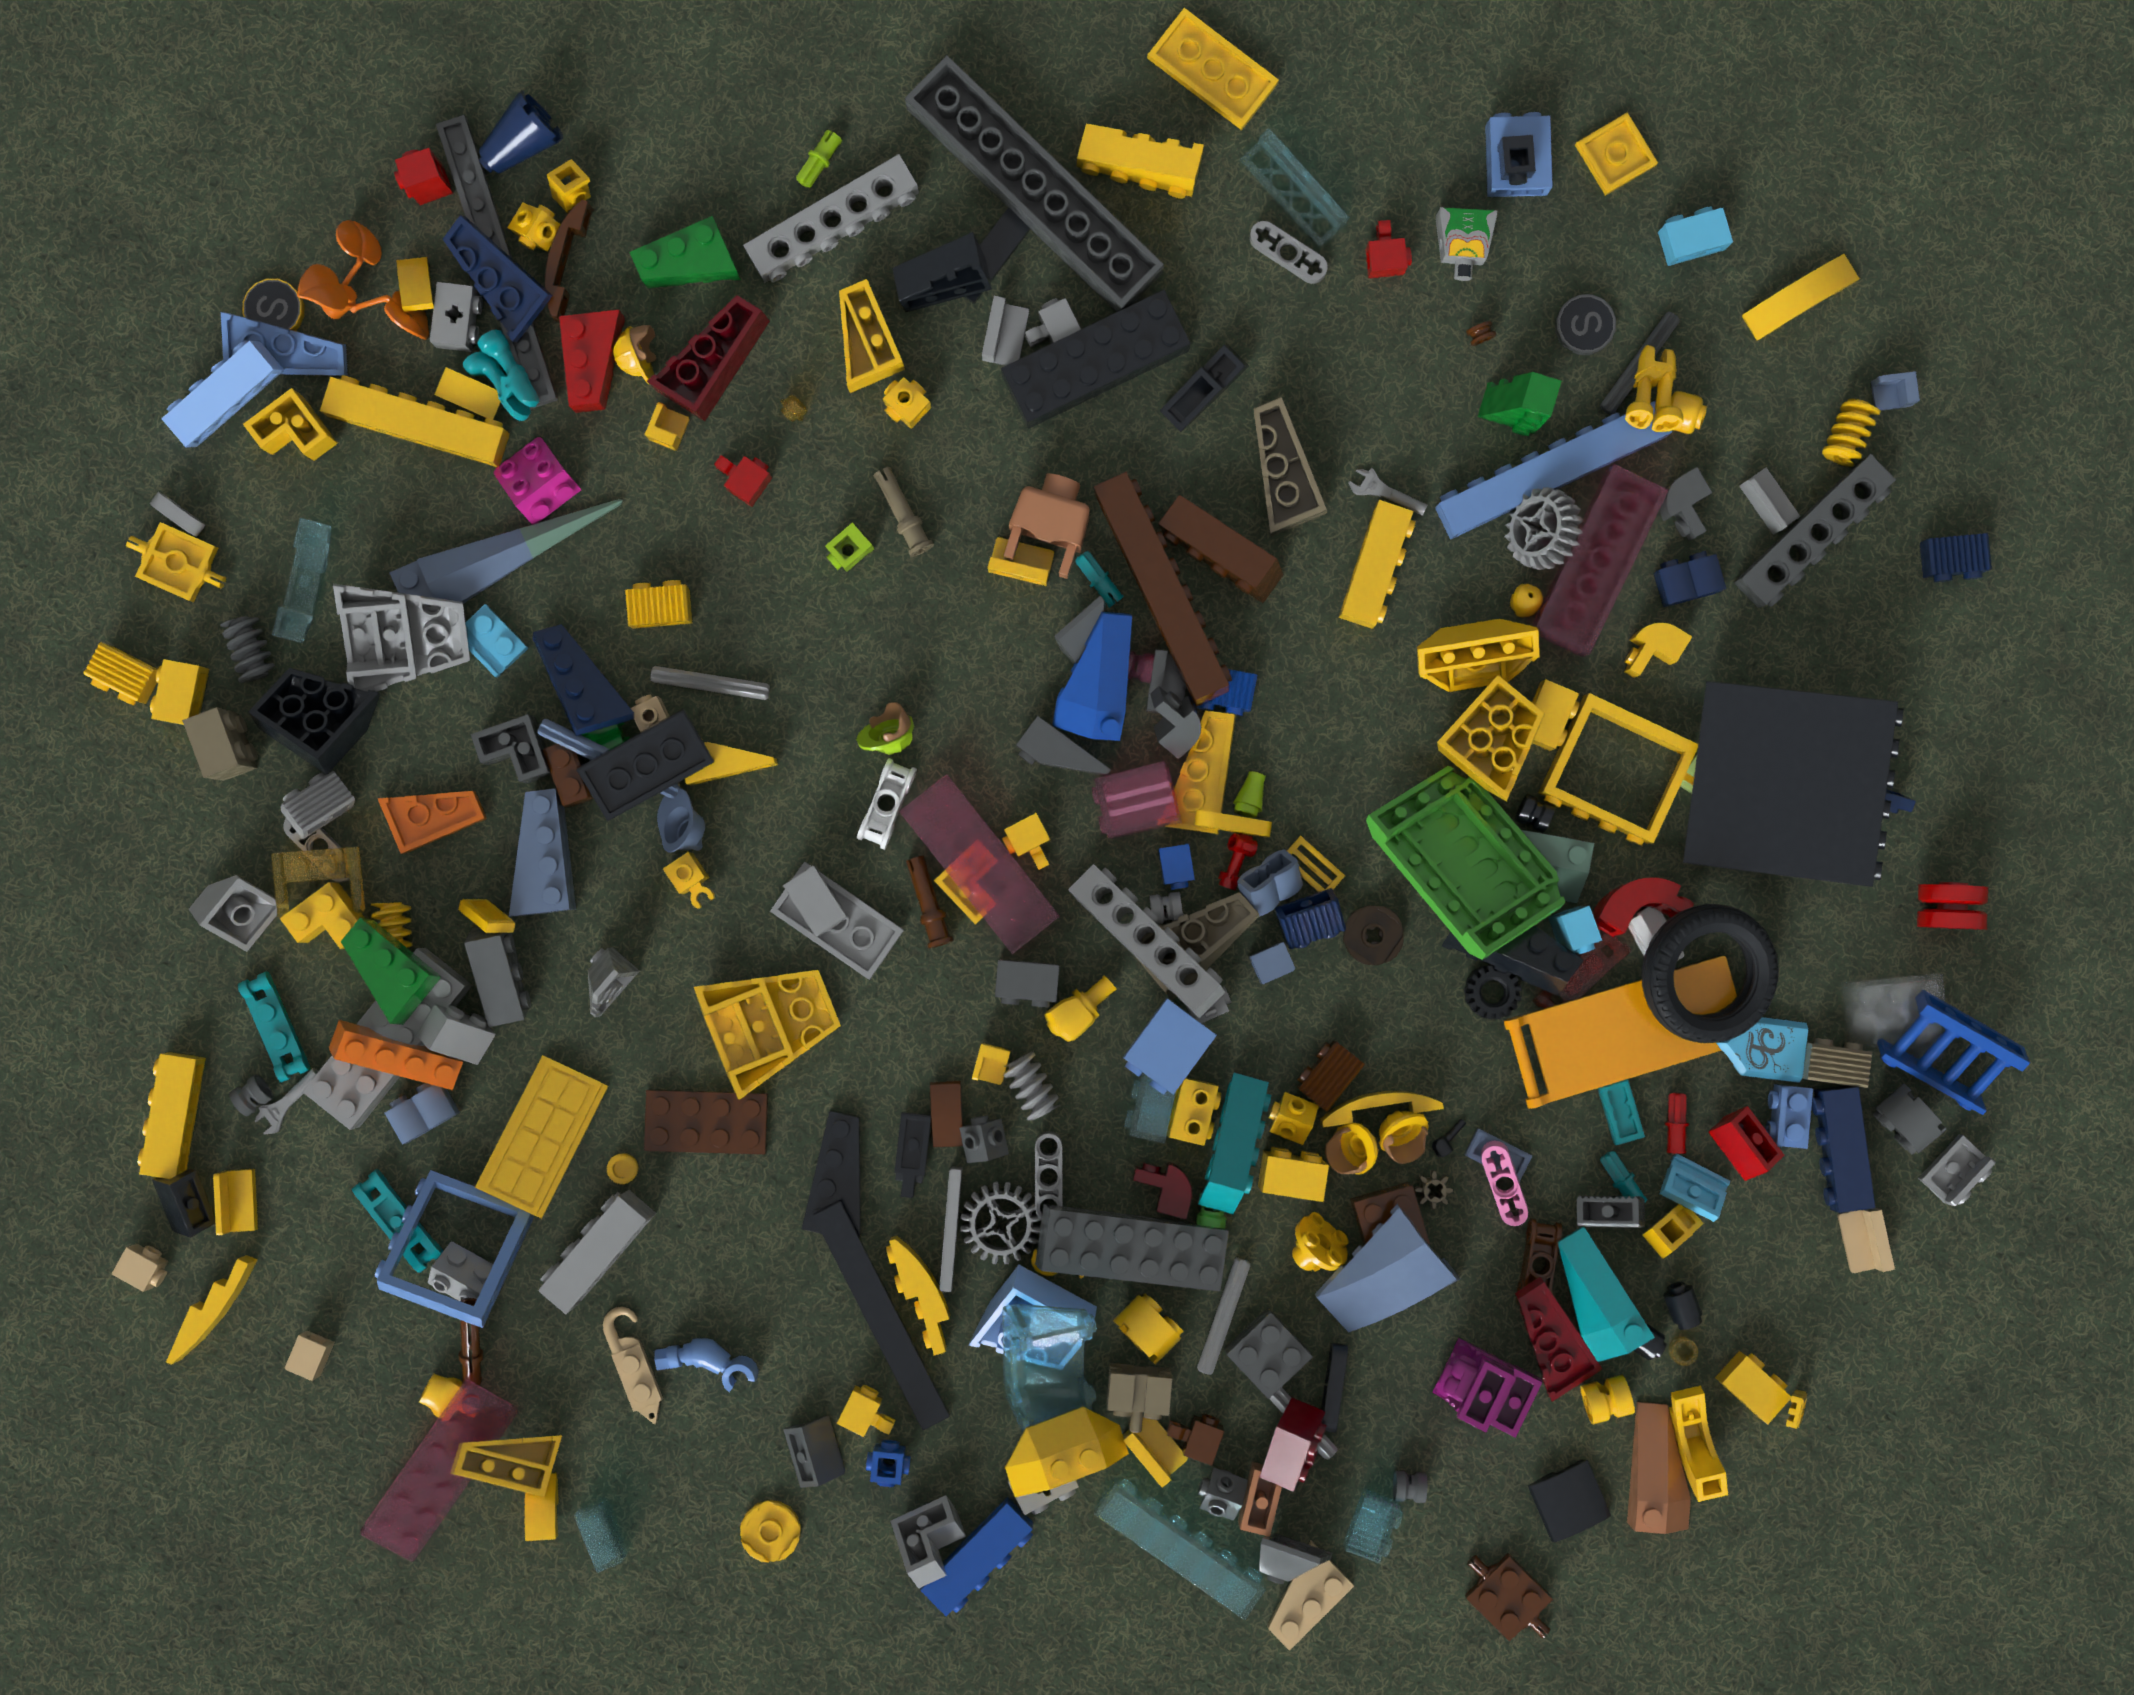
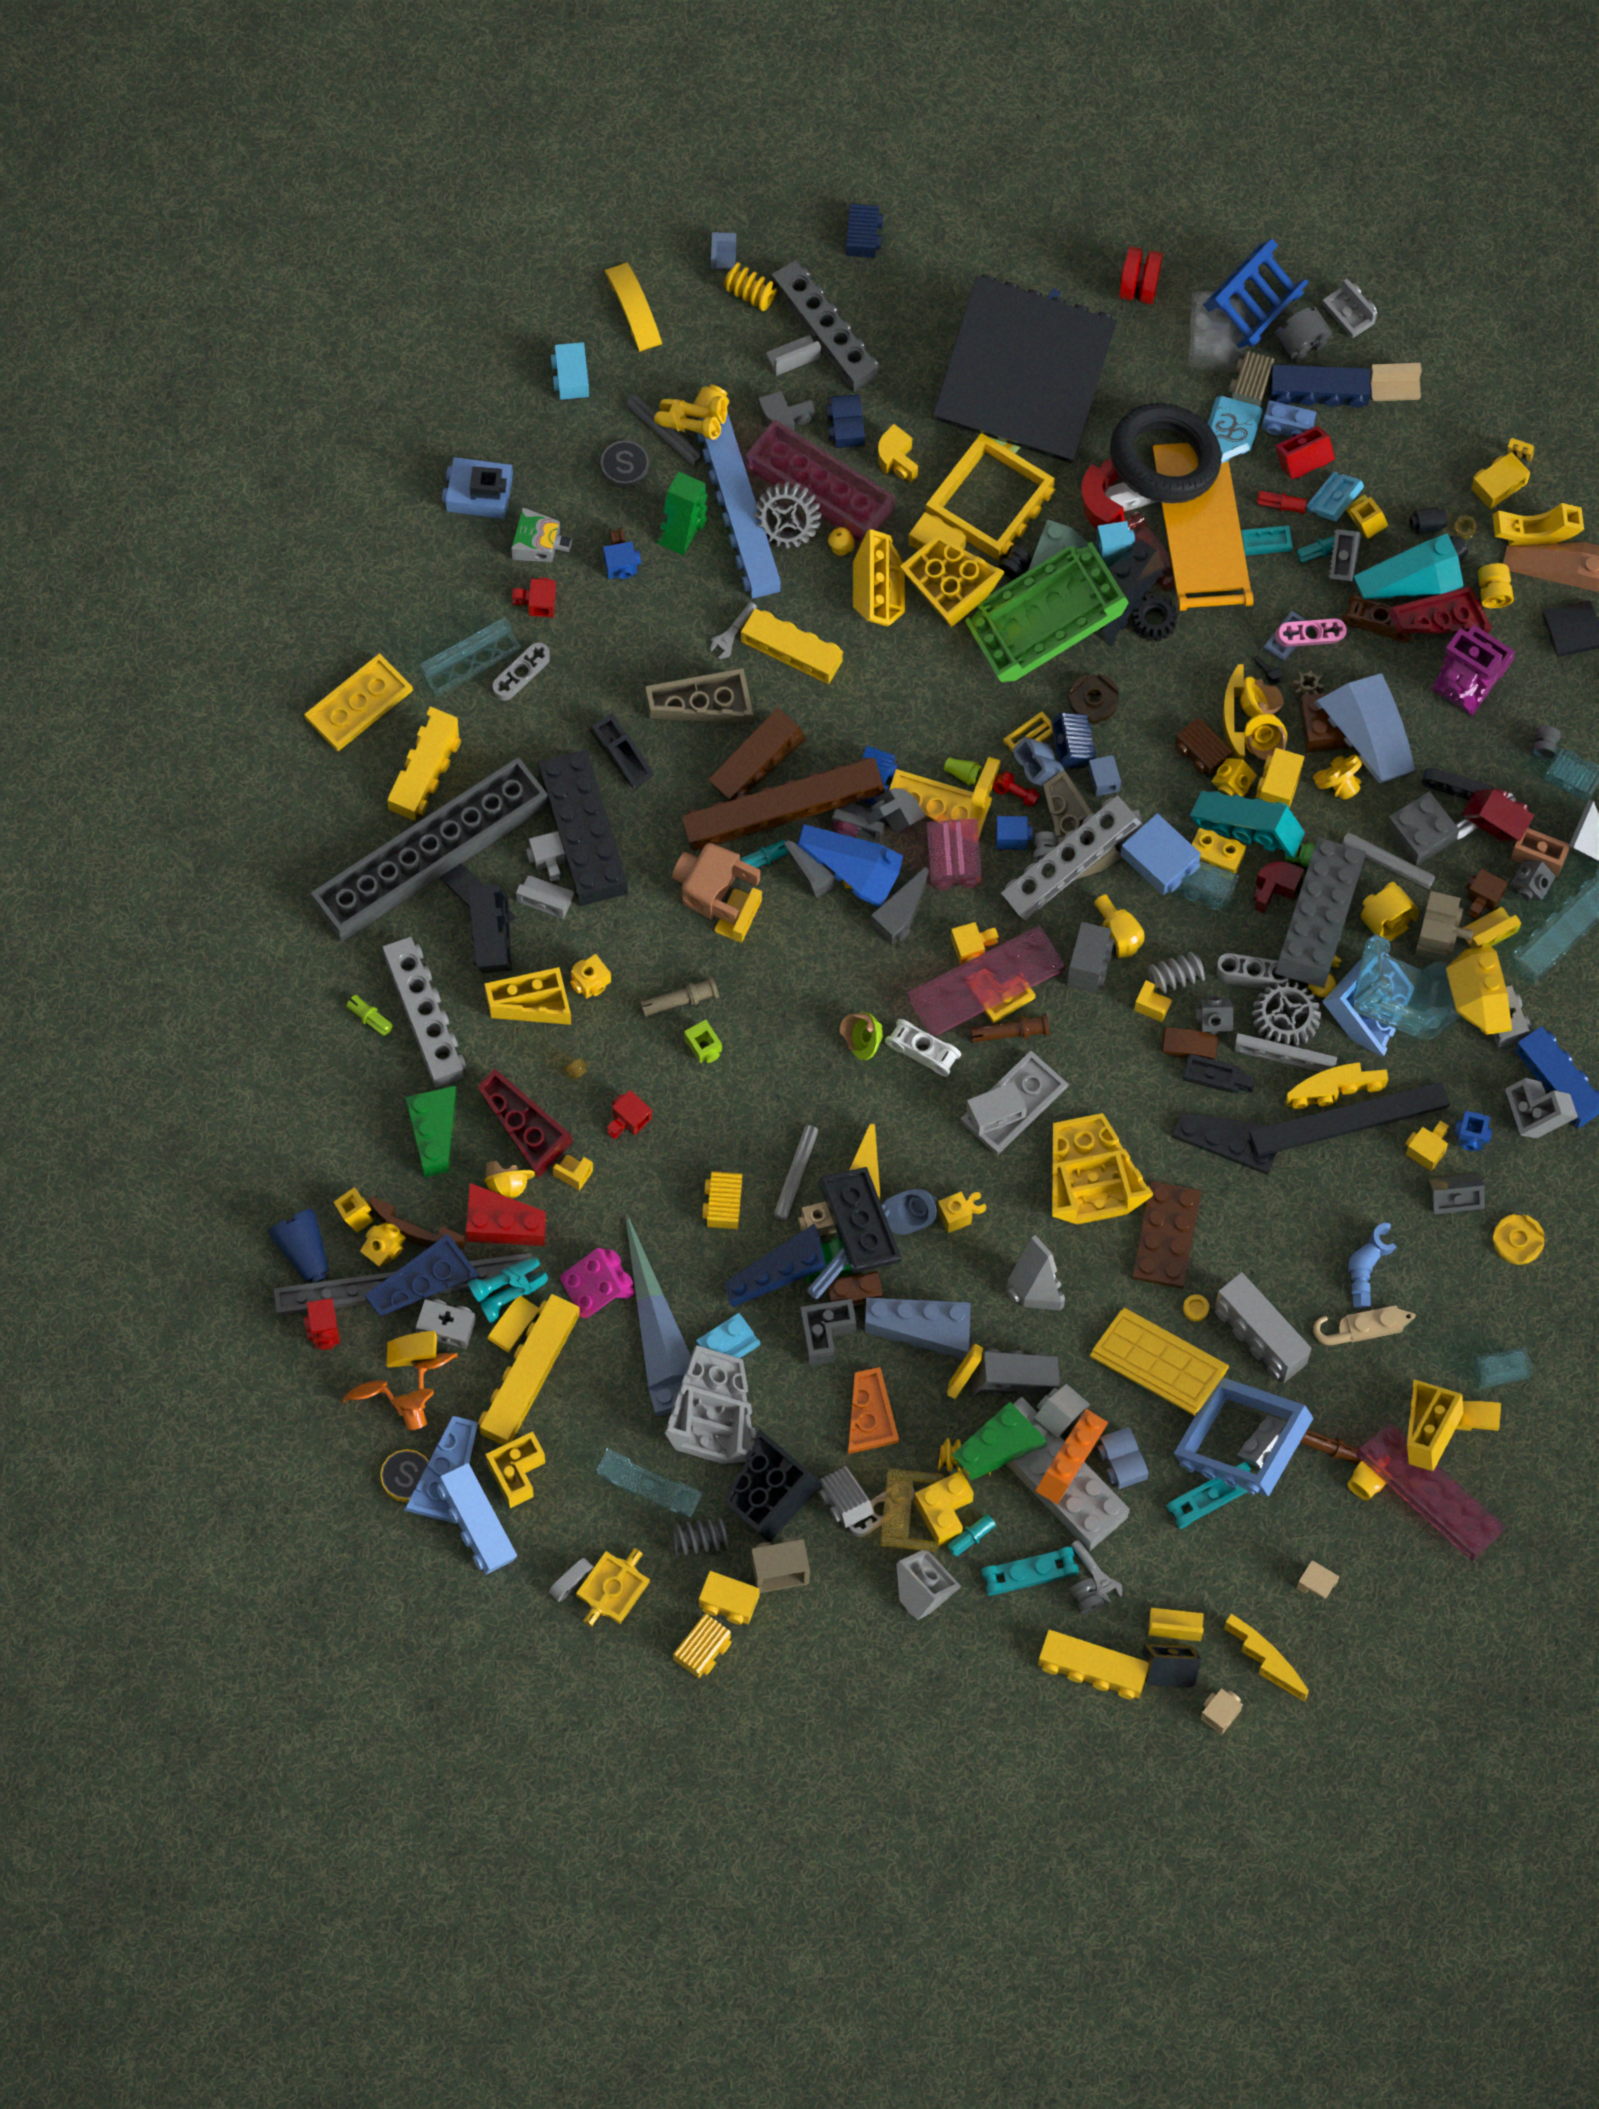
camera: 80 degrees left, 20 degrees down
(306, 955) = (971, 1535): none -> teal axle
(1452, 342) = (621, 560): none -> blue brick
(1616, 153) = (490, 419): yellow tile -> none

